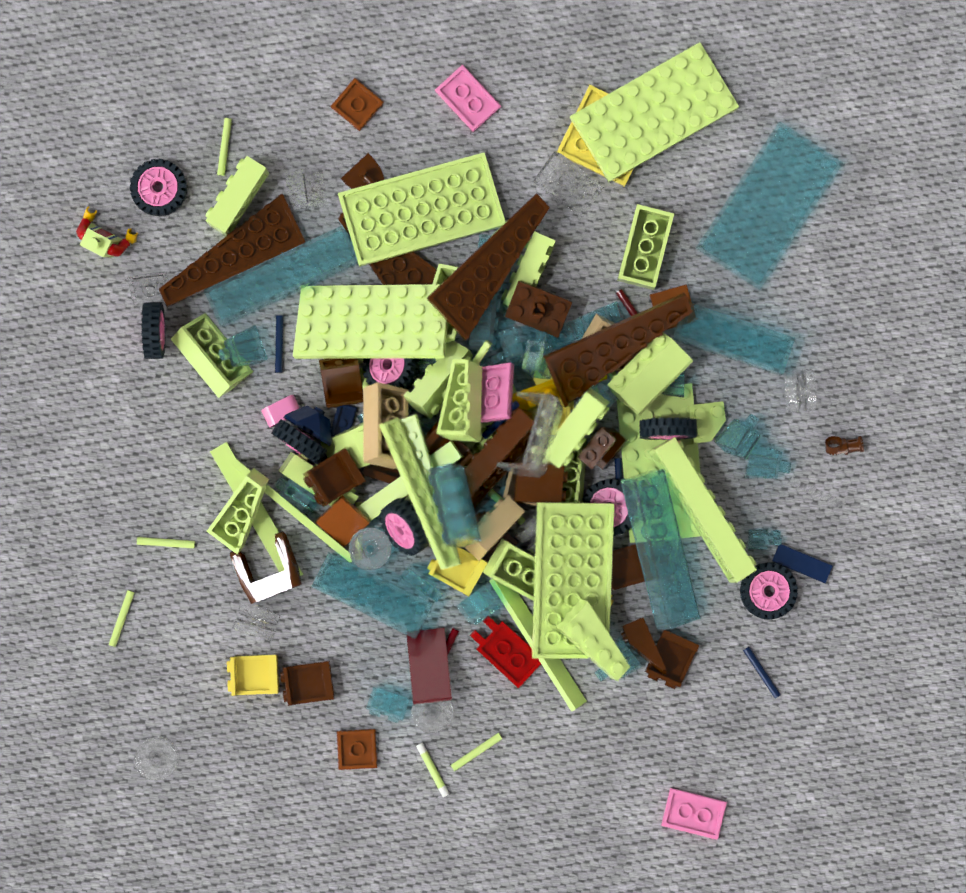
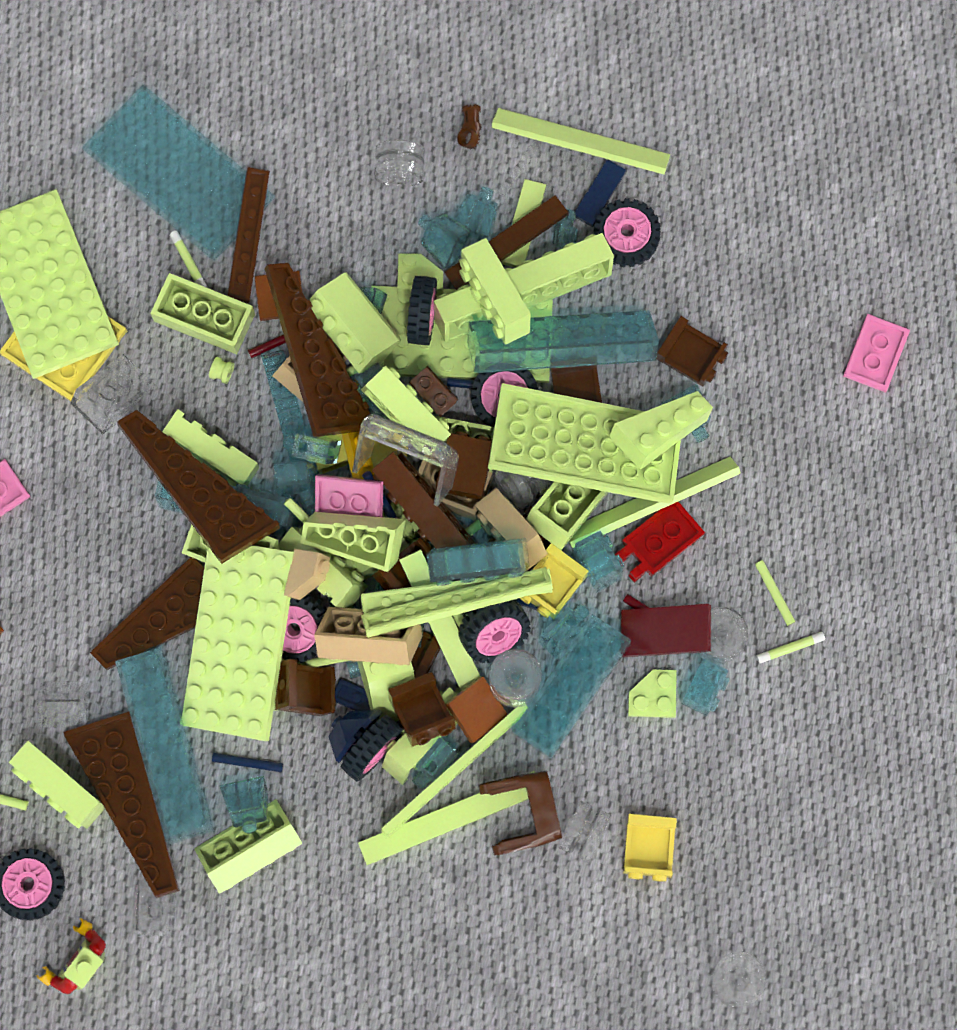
camera: 85 degrees left, 10 degrees down
(121, 618) = (558, 1004): yellowish green bar -> none
(153, 330) = (205, 910): black wheel -> none
(165, 542) = (471, 935): yellowish green bar -> none
(238, 515) = (449, 836): yellowish green wedge -> none
(278, 410) = (329, 770): bright pink beam -> none
(307, 683) = (668, 782): reddish brown panel -> none
(357, 749) = (755, 734): dark orange tile -> none
(363, 173) = (62, 630): reddish brown shield -> none
(377, 663) = (654, 695): none -> yellowish green plate
(421, 209) = (112, 567): yellowish green plate -> none
(428, 367) = (306, 573): none -> tan slope
(538, 309) = (255, 442): reddish brown plate -> none
(600, 270) = (221, 370): none -> yellowish green wheel
(641, 641) = (671, 379): reddish brown slope -> none
(685, 487) = (494, 291): none -> yellowish green brick
(692, 227) = (185, 255): none -> yellowish green bar
(720, 273) = (248, 234): none -> reddish brown tile
(735, 339) = (329, 225): clear light blue brick -> none
(744, 490) = (518, 234): none -> reddish brown tile
(761, 671) = (719, 255): dark blue bar -> none
(765, 503) = (530, 198): none -> yellowish green tile
(845, 541) = (581, 141): none -> yellowish green tile

